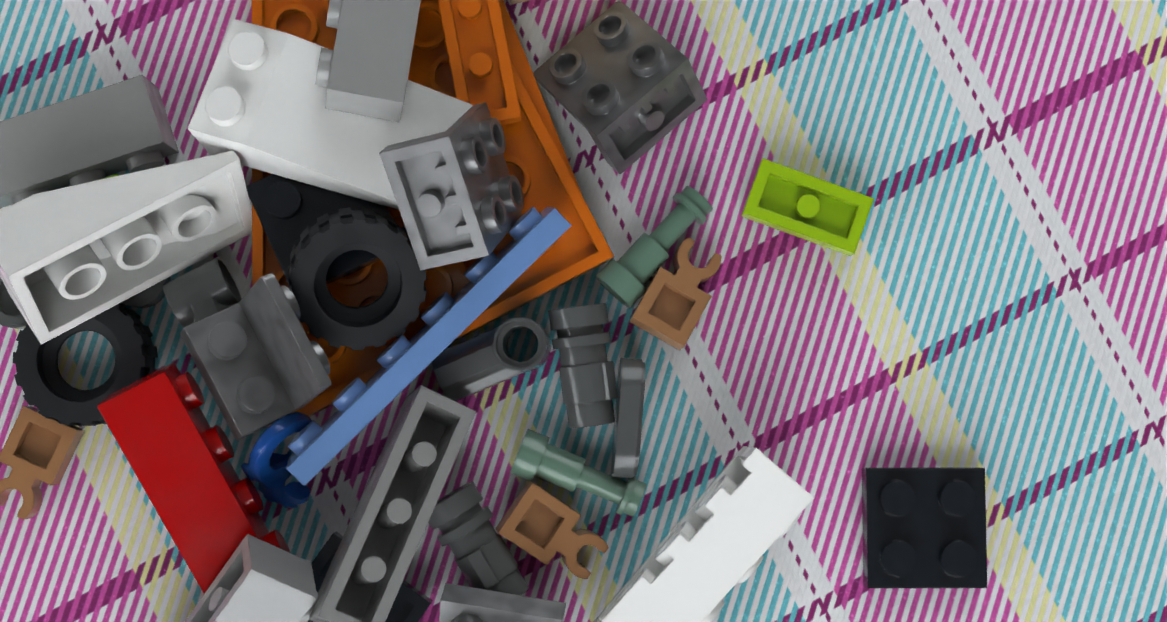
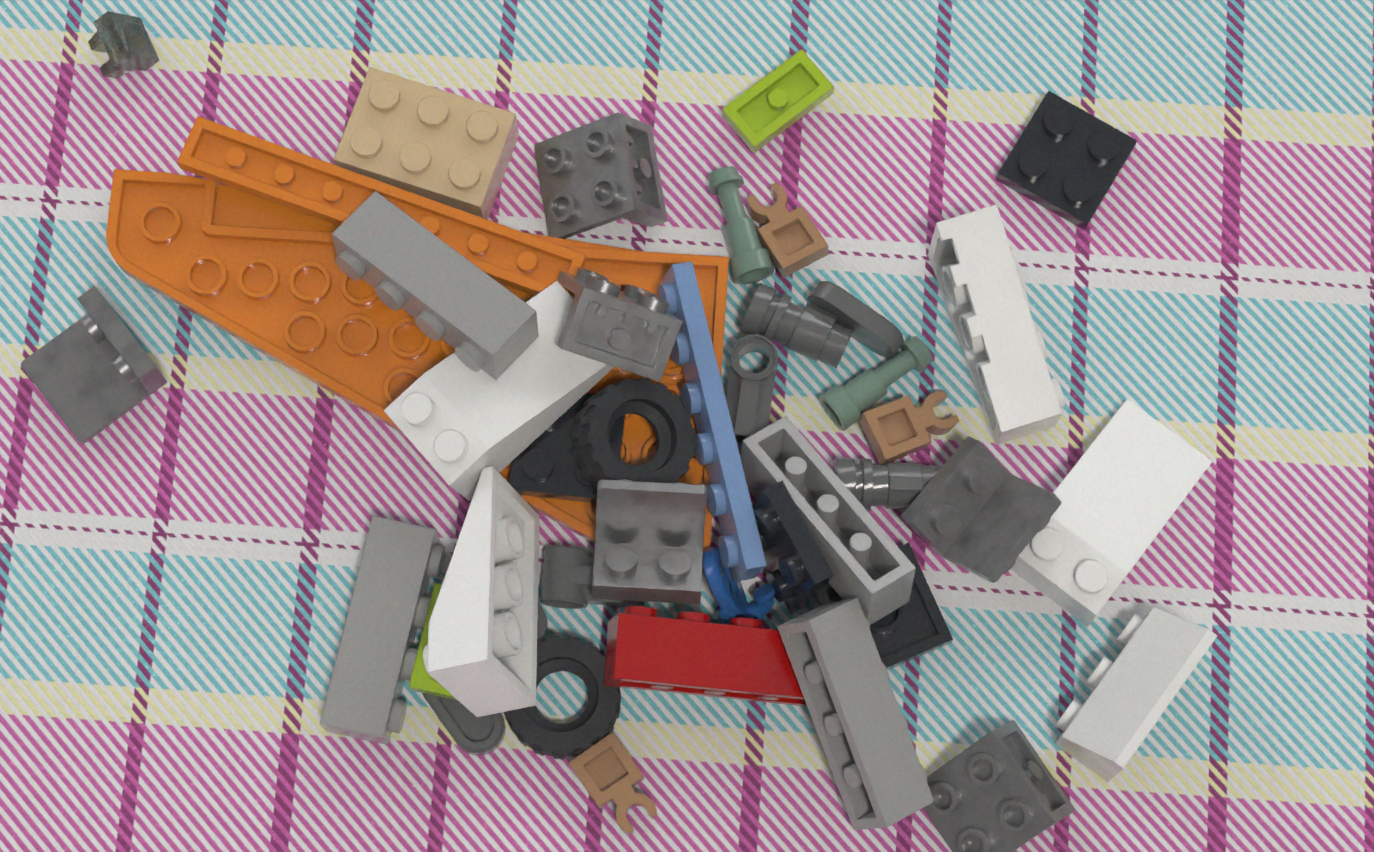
camera: 55 degrees left, 10 degrees down
(331, 509) = (791, 553): none -> black plate

